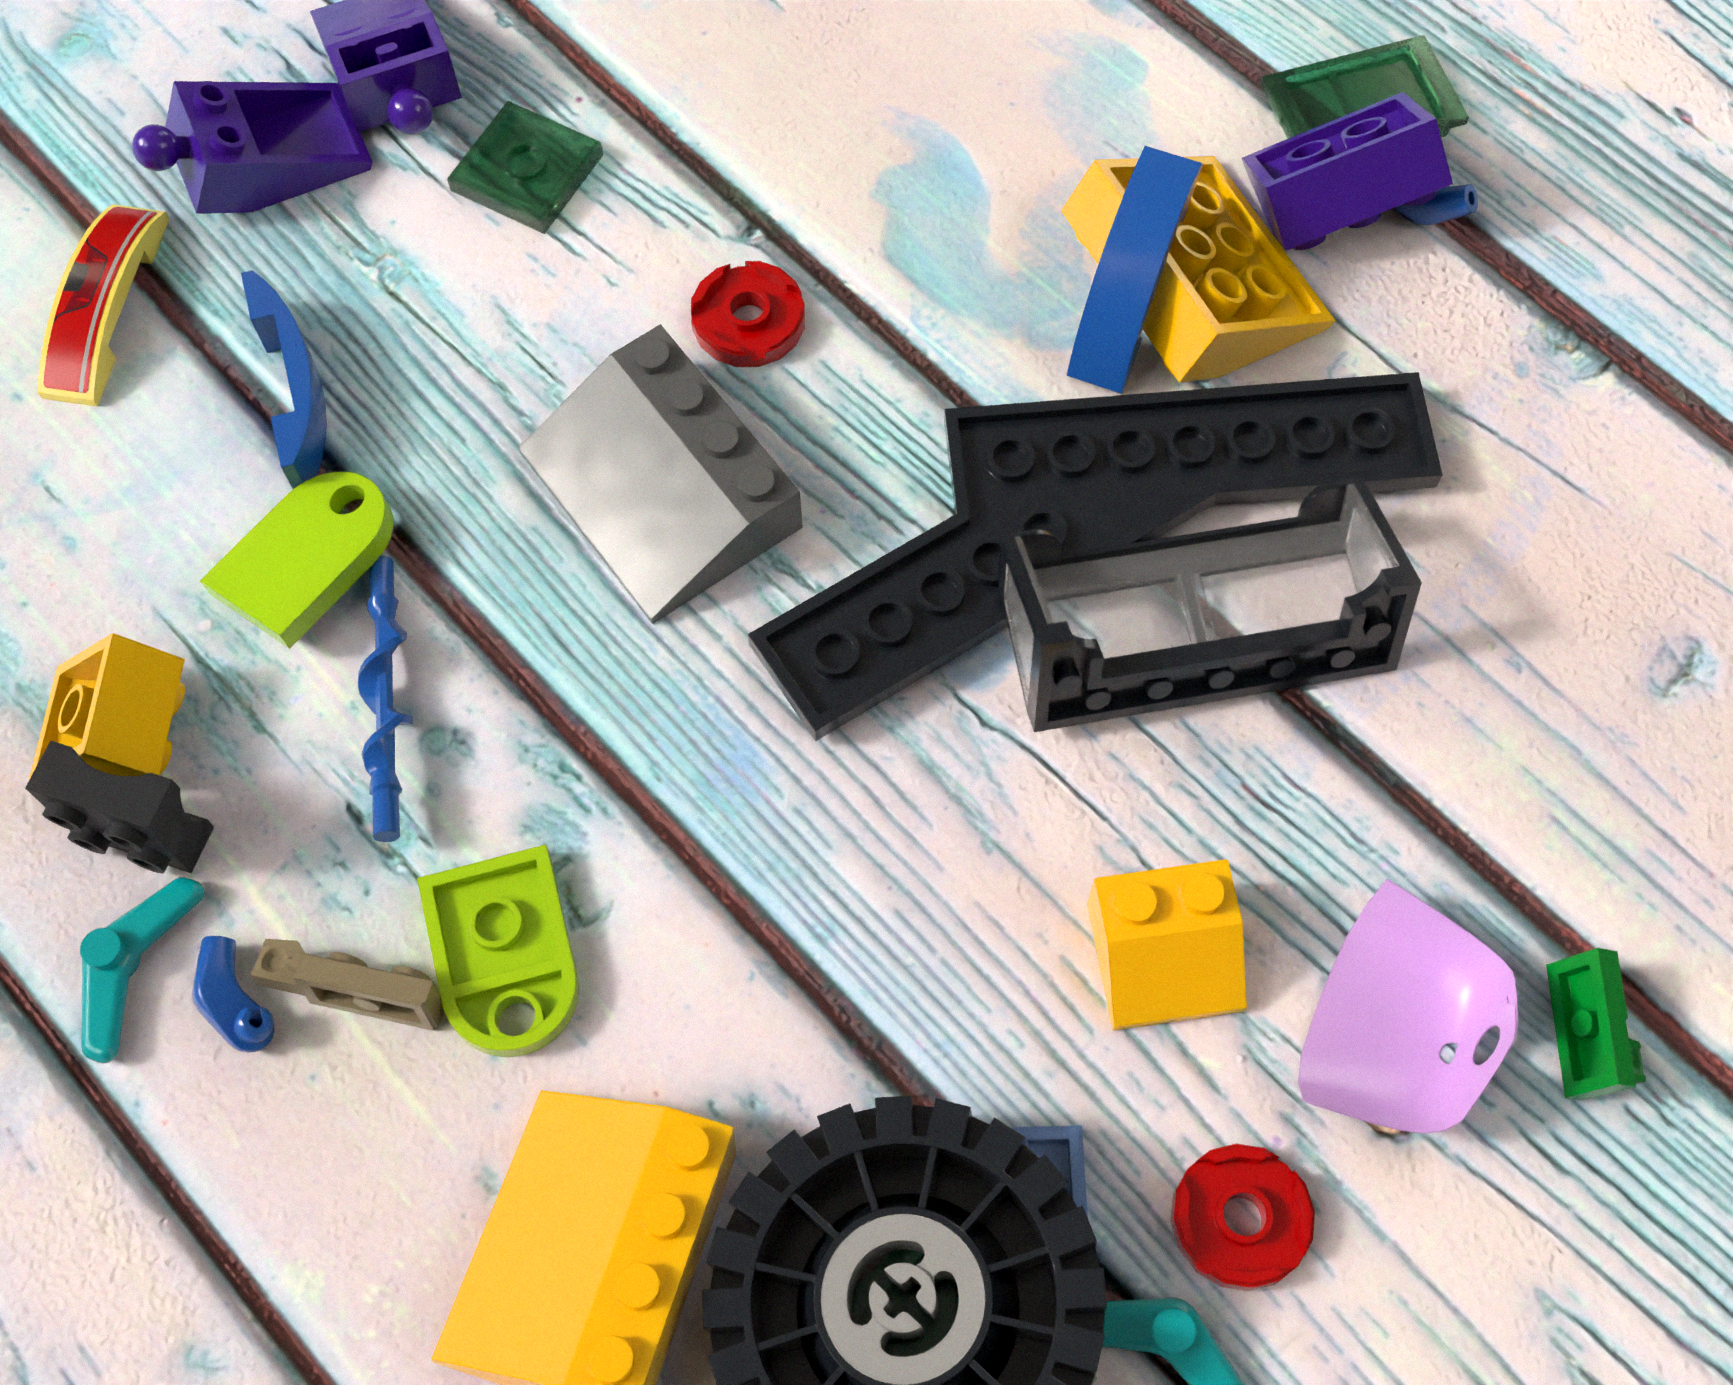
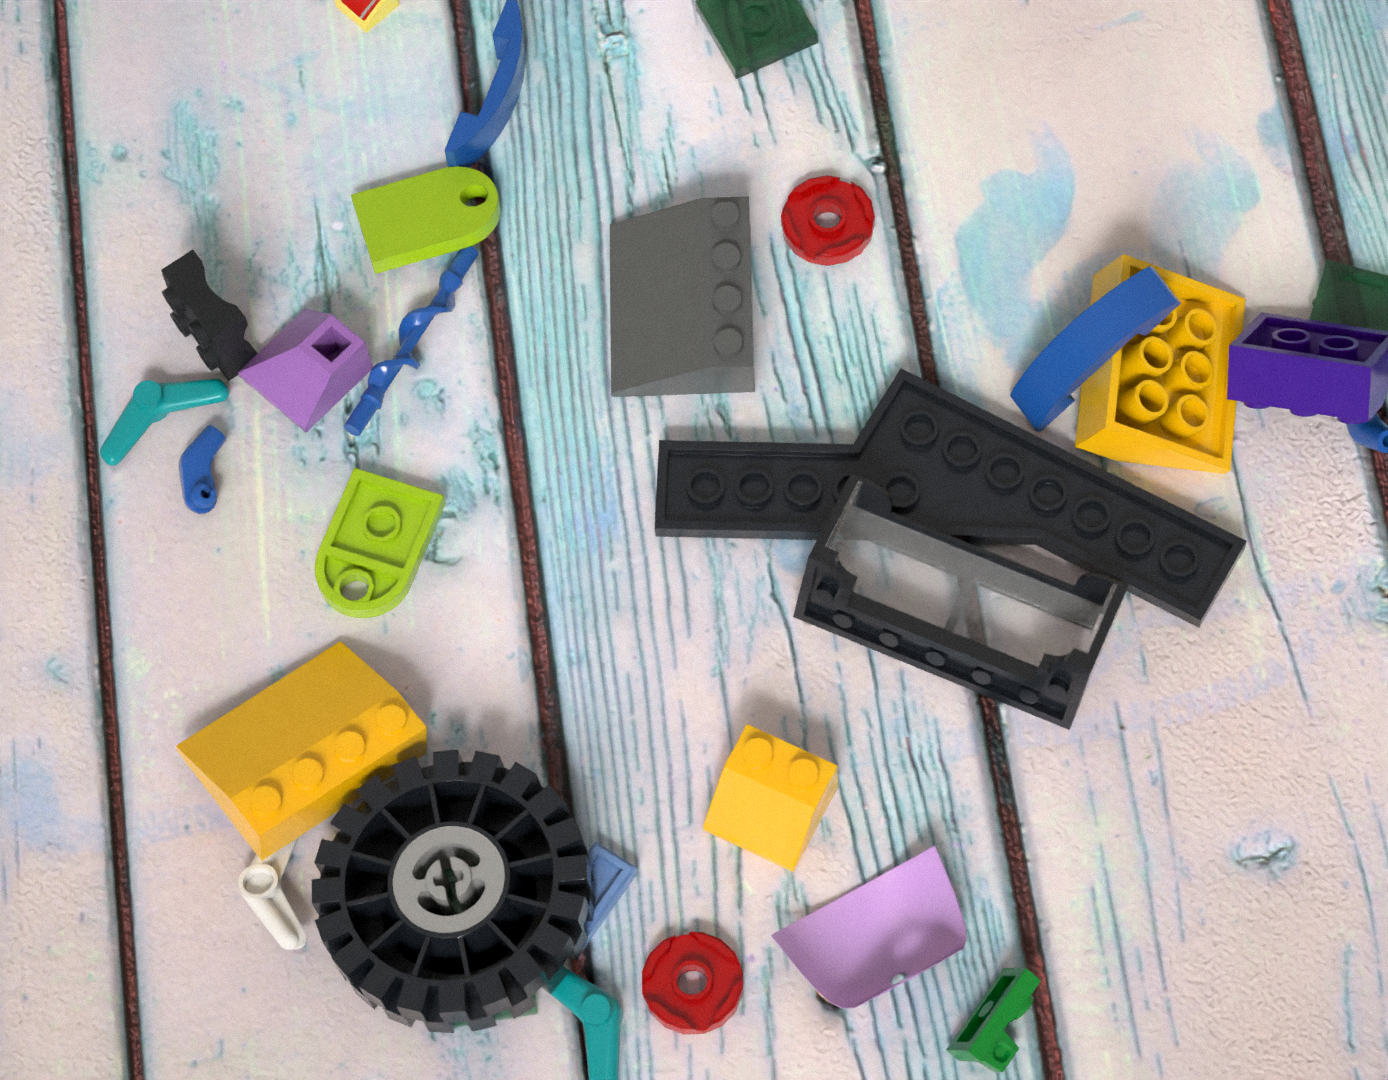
camera: 40 degrees right, 0 degrees up
(115, 706) = (246, 250): yellow slope -> none
(281, 796) = (308, 367): none -> medium lavender slope
(349, 984) = (273, 507): dark tan hinge -> none

